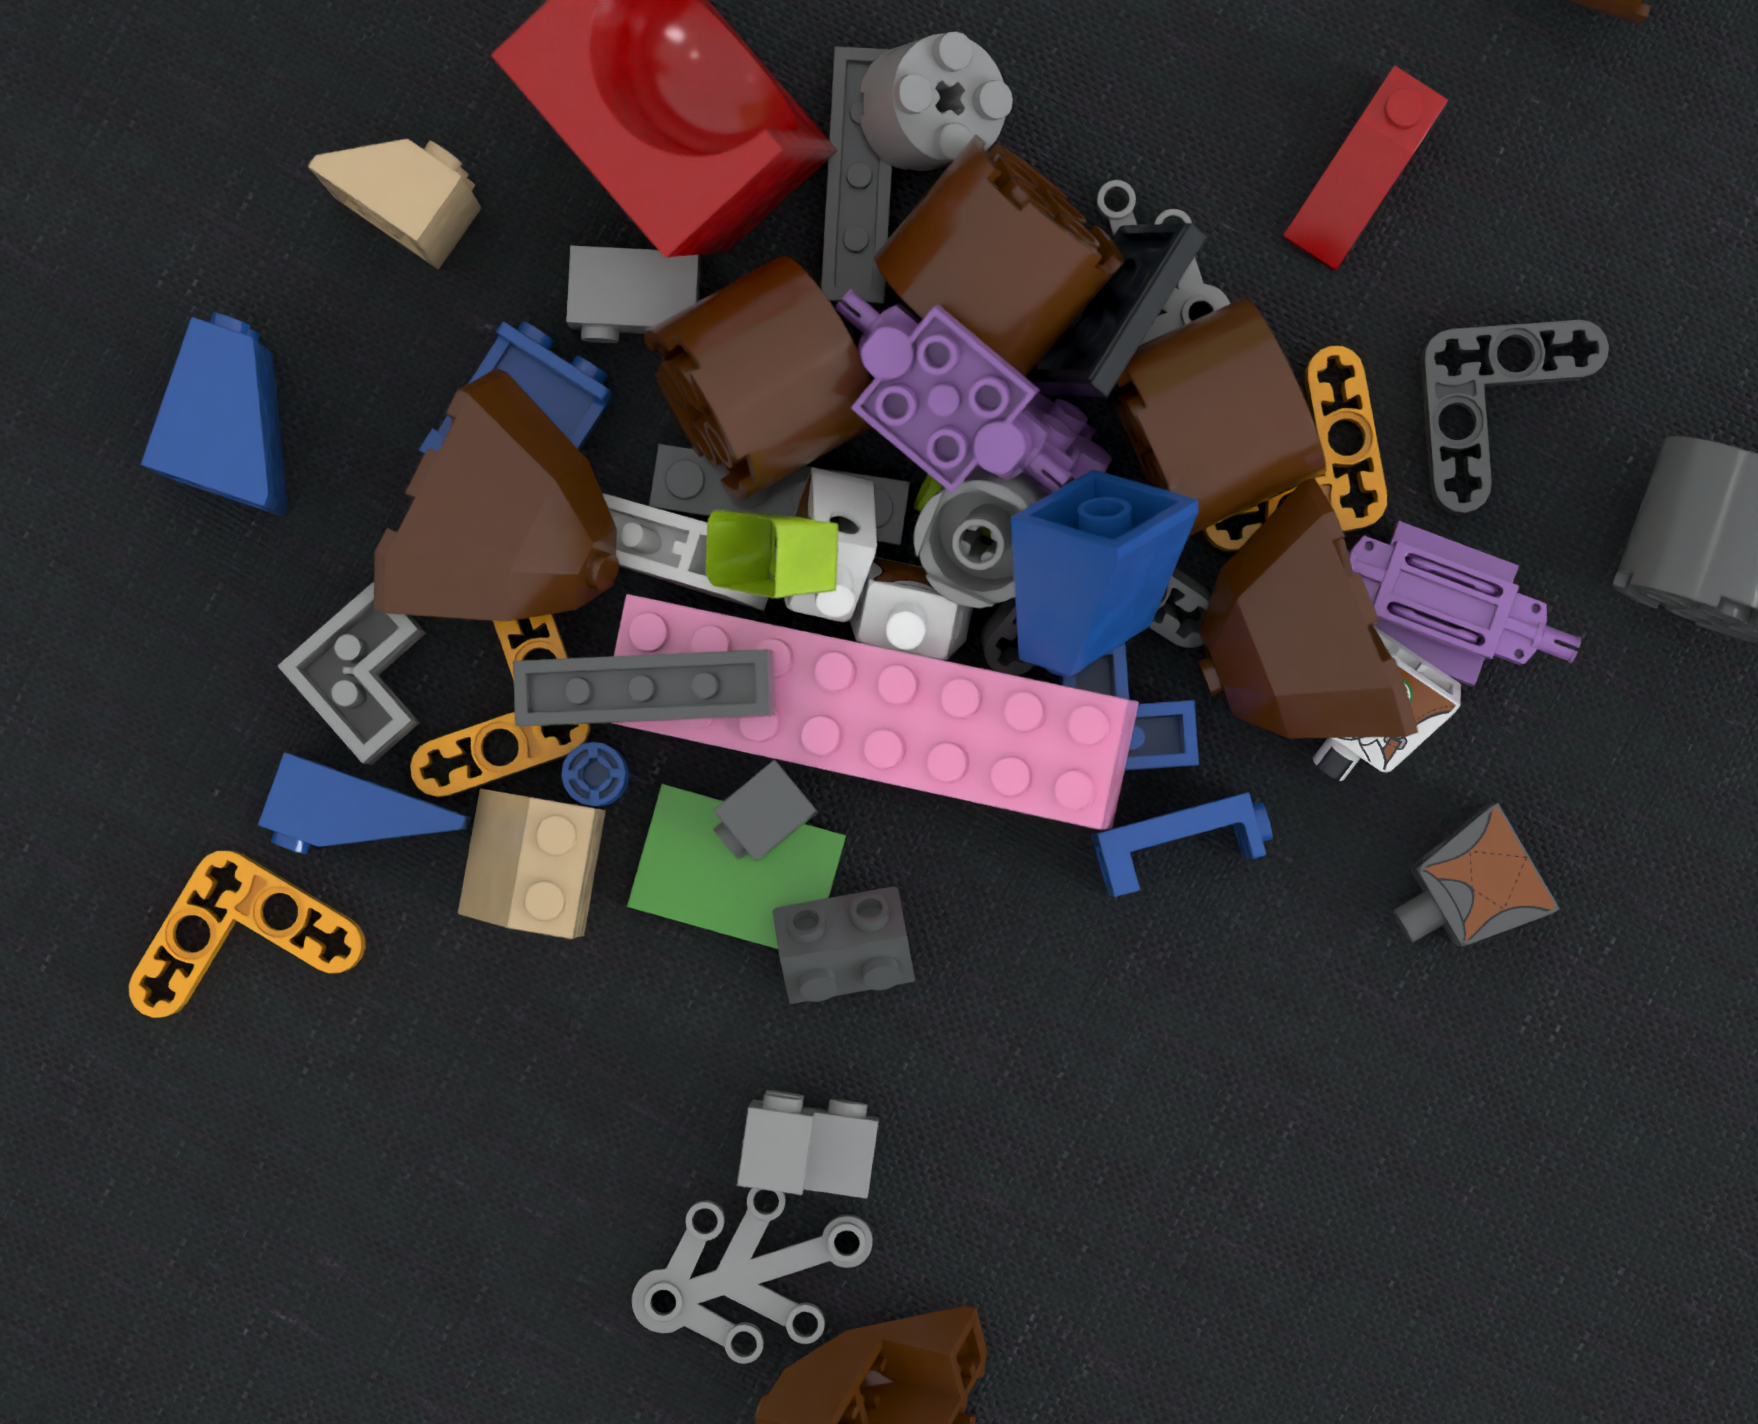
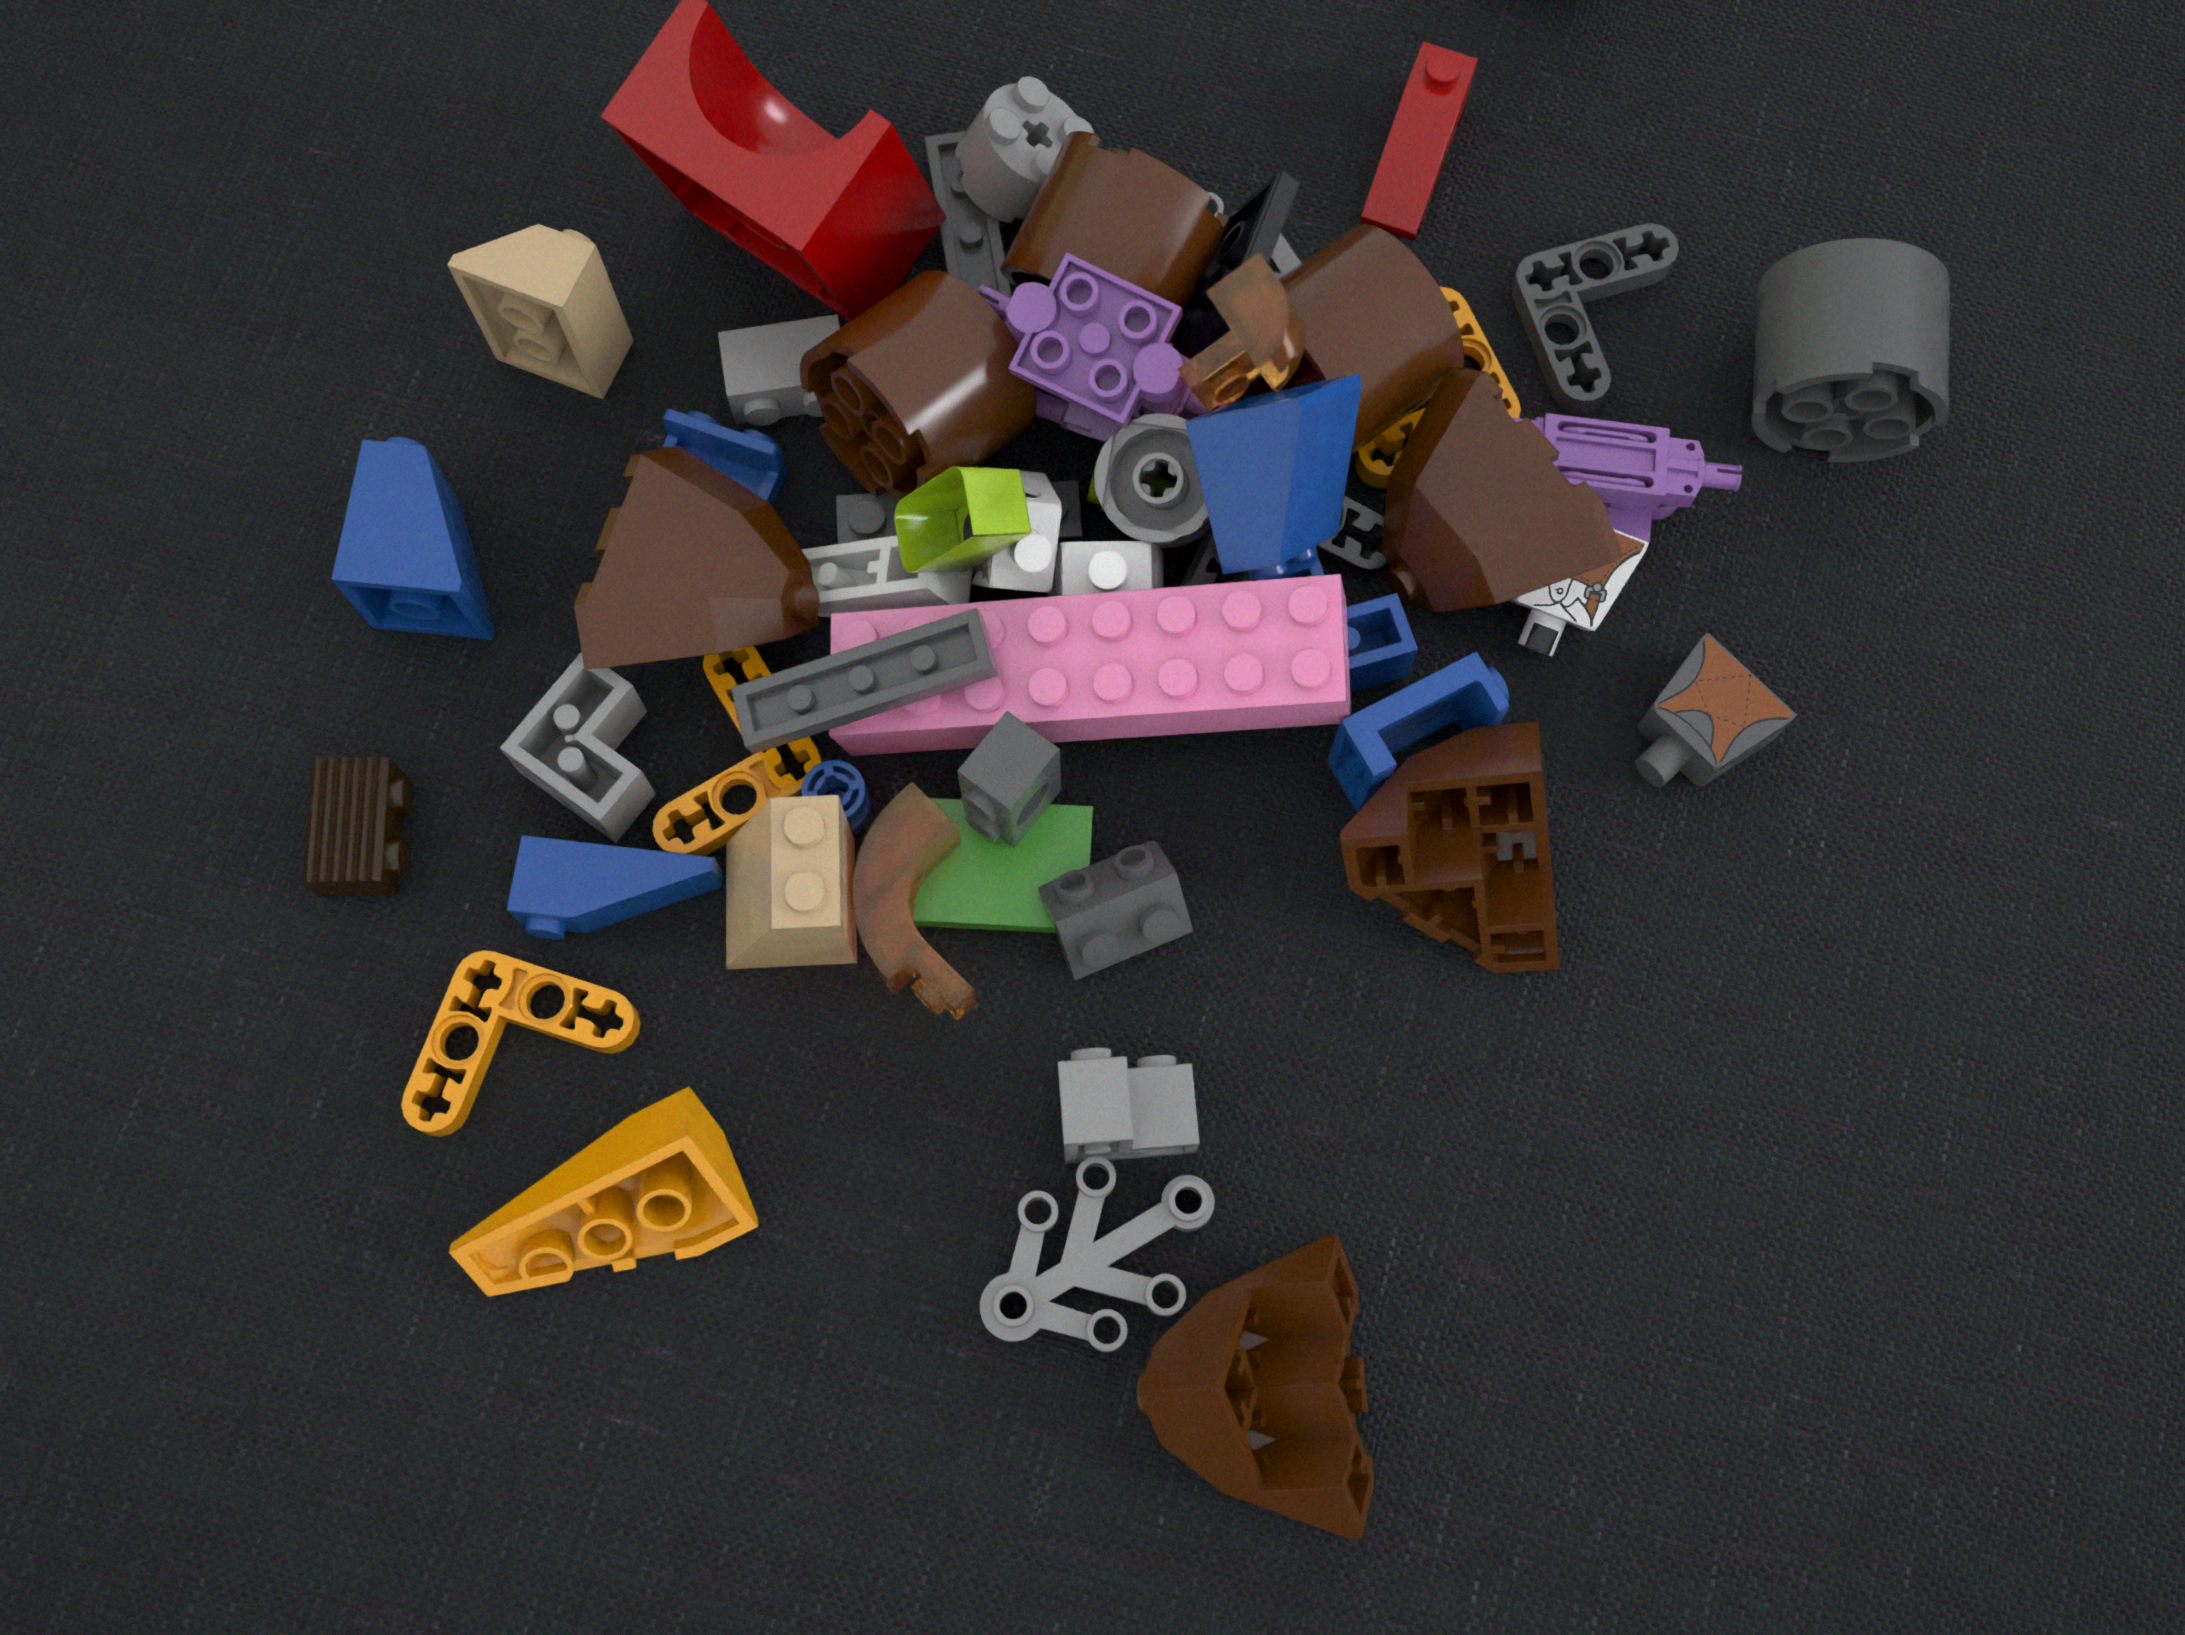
camera: 15 degrees left, 15 degrees down
(124, 698) = (356, 827): none -> dark brown brick
(338, 1114) = (632, 1194): none -> light orange wedge
(620, 896) = (890, 868): none -> clear orange arch
(1114, 432) = (1263, 337): none -> clear orange brick
(1196, 967) = (1465, 847): none -> reddish brown brick

